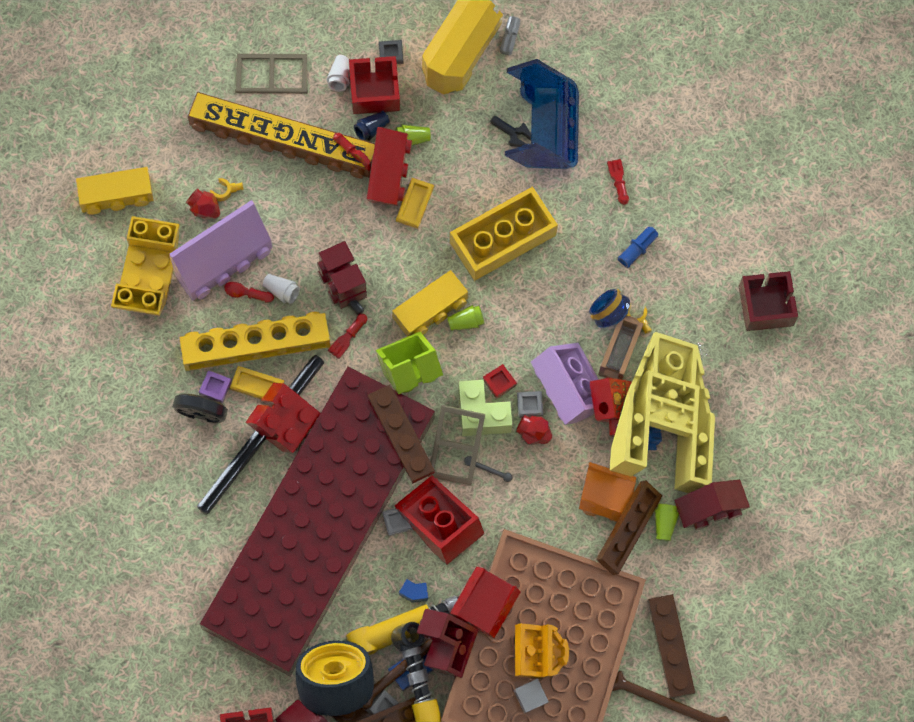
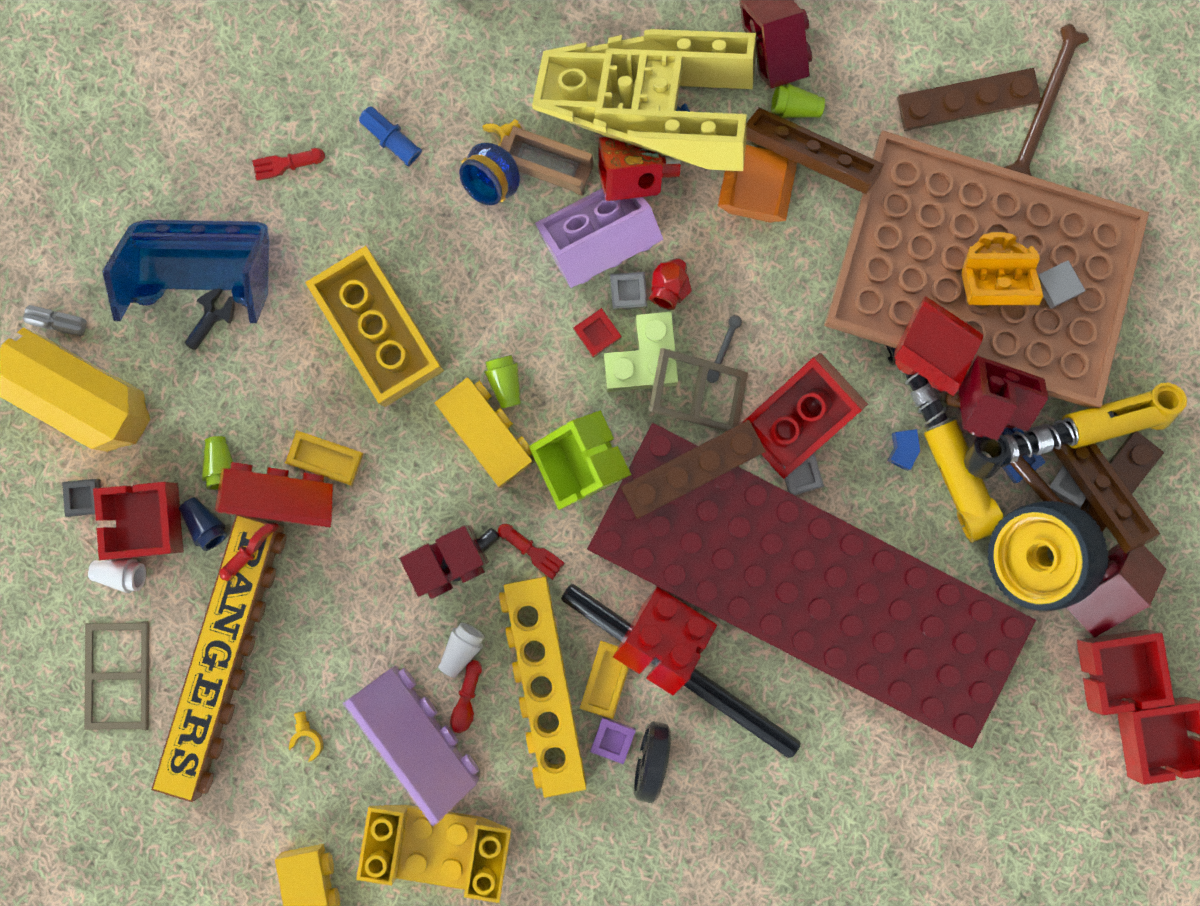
camera: 85 degrees left, 15 degrees up
(203, 204) = (331, 770): red rock -> none

